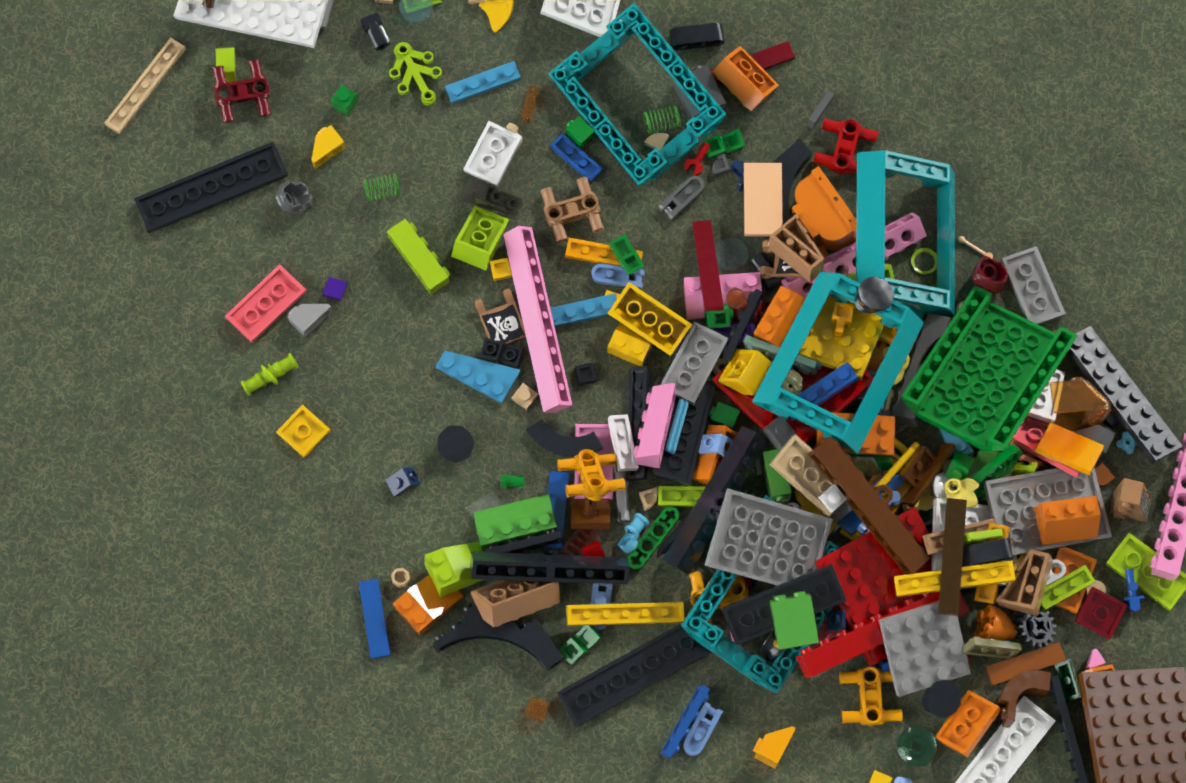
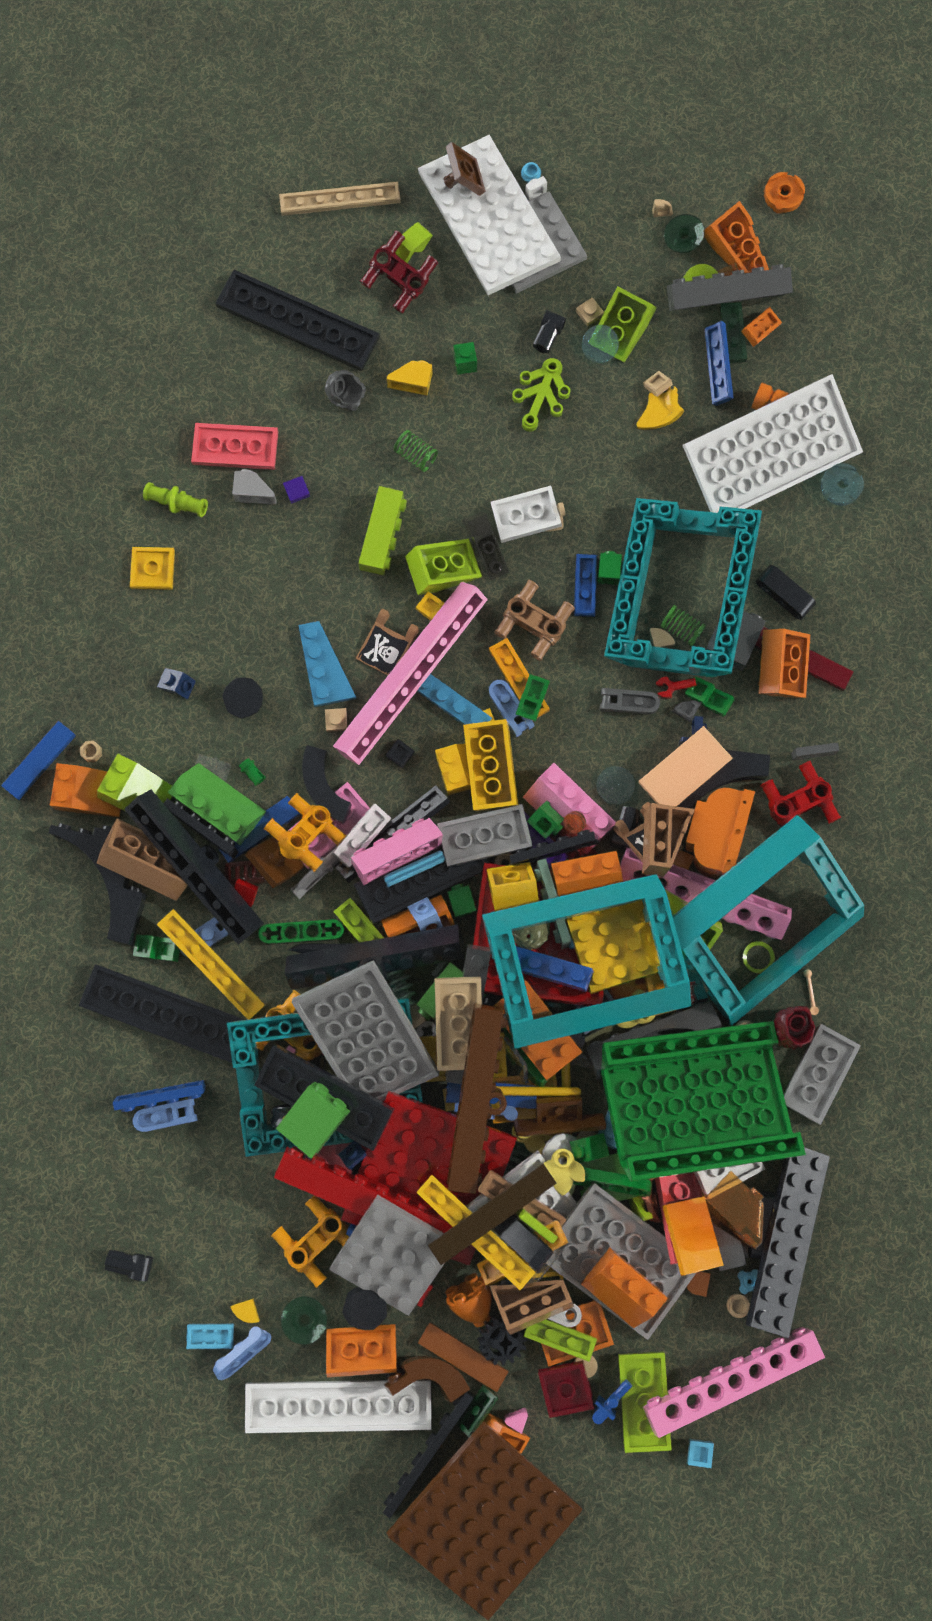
camera: 50 degrees right, 5 degrees up
(482, 82) = (583, 454): dark azure plate -> none
(502, 352) = (358, 668): black slope -> none
(529, 103) = (598, 507): clear orange axle -> none
(537, 709) = (68, 960): clear orange plate -> none
(629, 540) = (281, 913): medium azure connector -> none
(648, 498) = (334, 898): tan tile -> none
(707, 266) = (581, 774): dark red tile -> none
(773, 746) = (195, 1192): light orange slope -> none
(832, 498) = (453, 1060): white plate -> none
(842, 316) = (631, 927): light orange plate -> none
(874, 295) = (671, 941): black hat -> none
(991, 648) = (446, 1315): olive plate -> none
(1130, 501) = (692, 1331): medium nougat wedge -> none
(1137, 463) = (738, 1305): none -> tan tile

